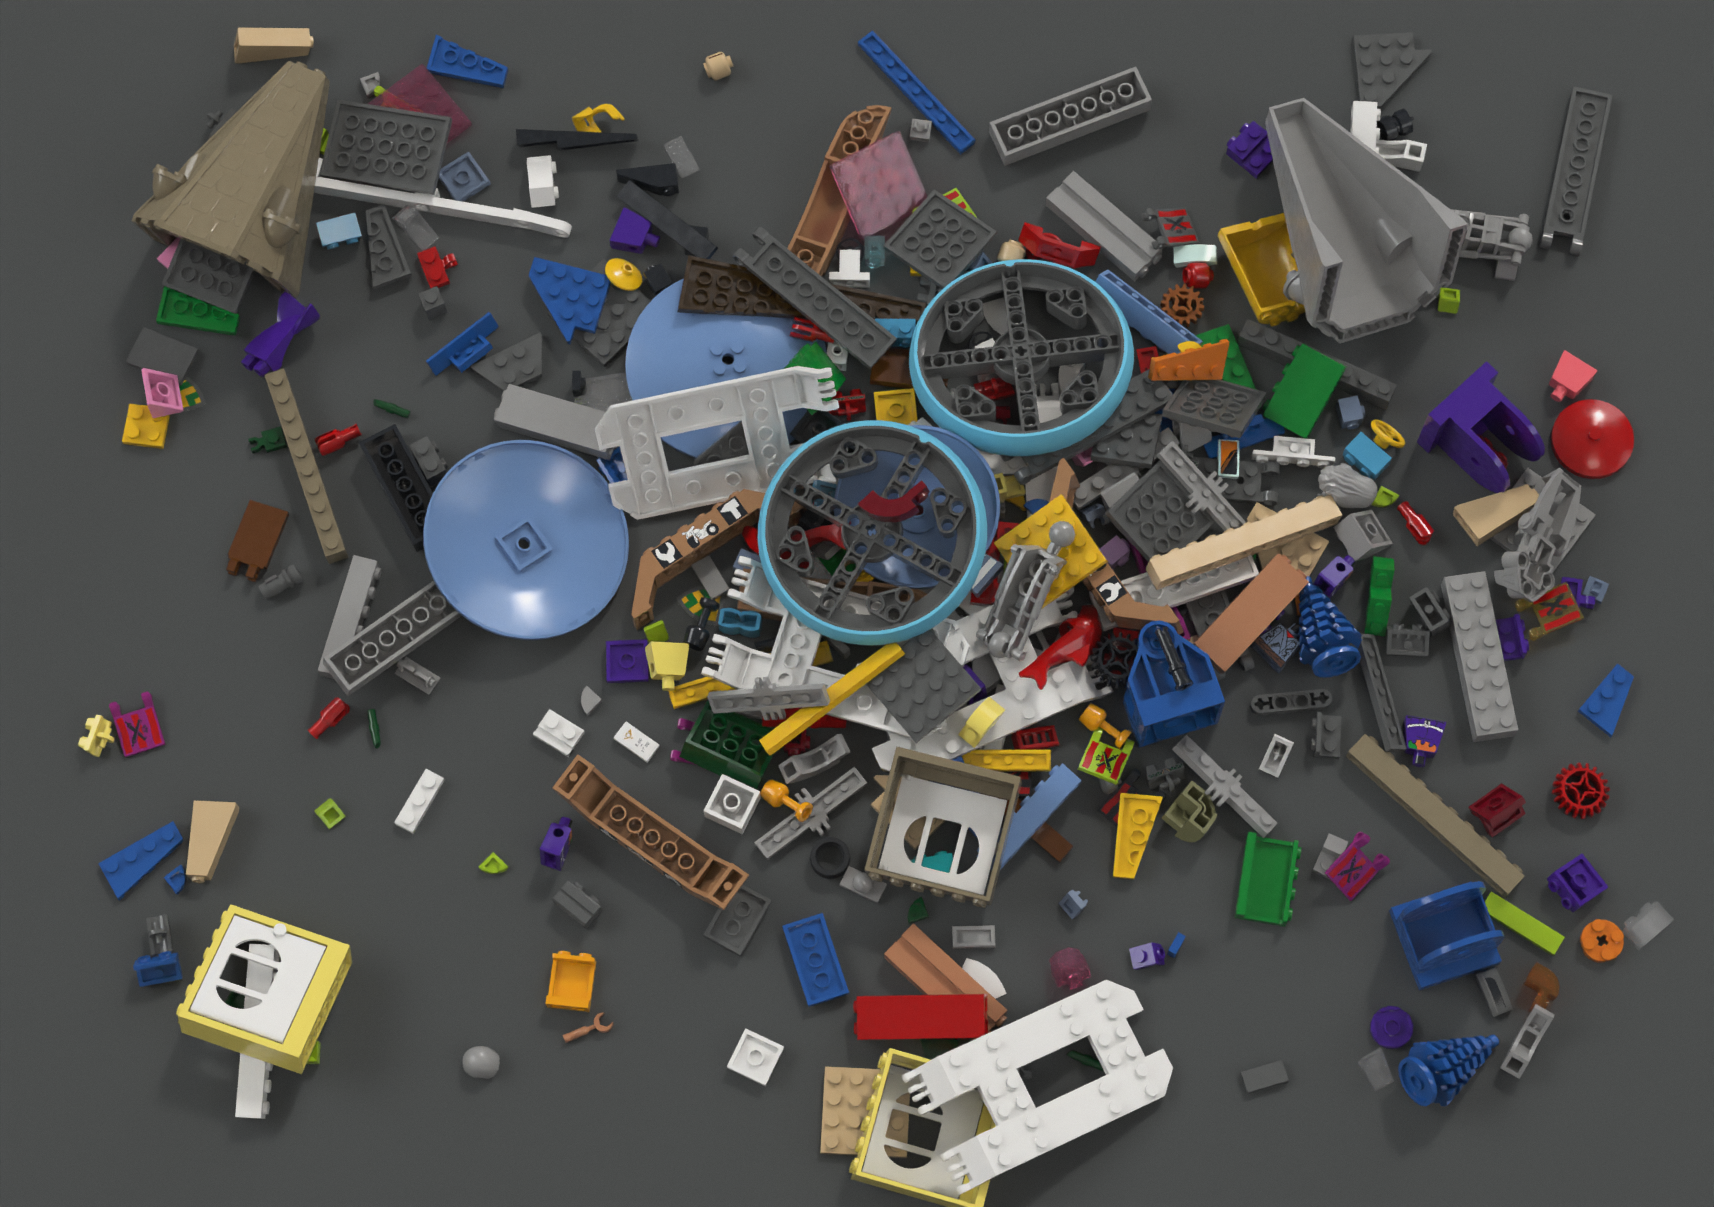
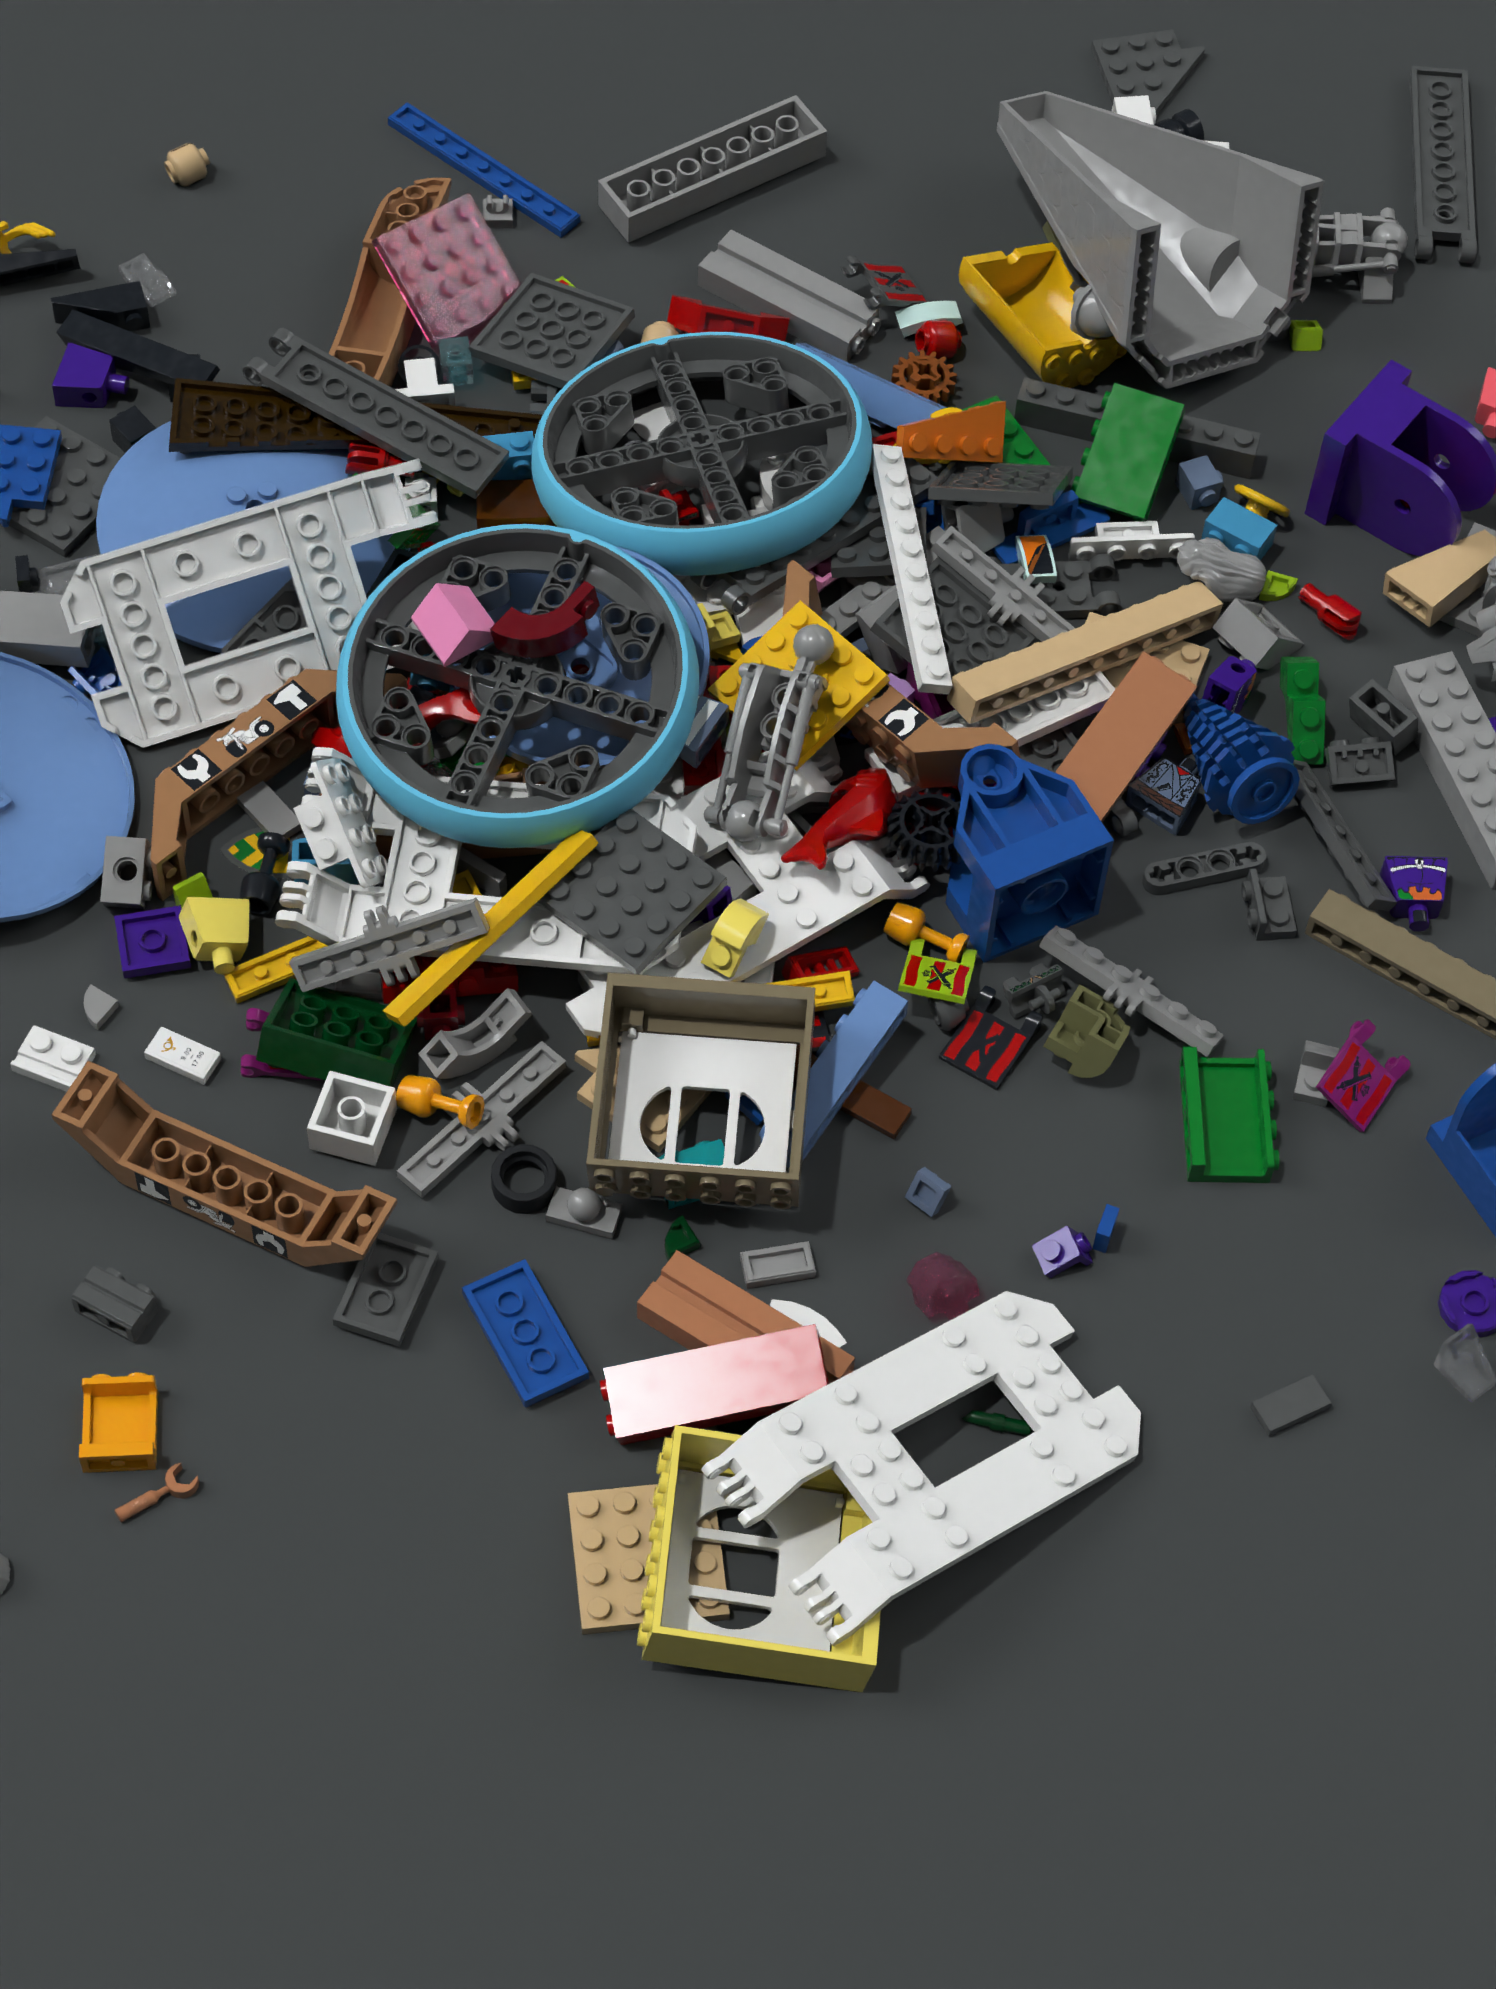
camera: 15 degrees left, 15 degrees down
(556, 844) = (69, 1203): dark purple torso -> none
(609, 623) = (117, 855): none -> light grey brick
(623, 274) = (79, 429): yellow dish -> none
(748, 614) = (337, 825): none -> white bracket
(755, 1057) = (448, 1495): white plate -> none
(837, 491) = (453, 622): none -> bright pink slope
(1134, 827) = (1002, 1067): yellow wing -> none
(1139, 470) = (910, 570): none -> white plate
(1176, 667) = (1029, 799): black pin -> none
(1251, 149) = (982, 184): dark purple plate -> none
(1276, 755) = (1200, 938): white slope -> none

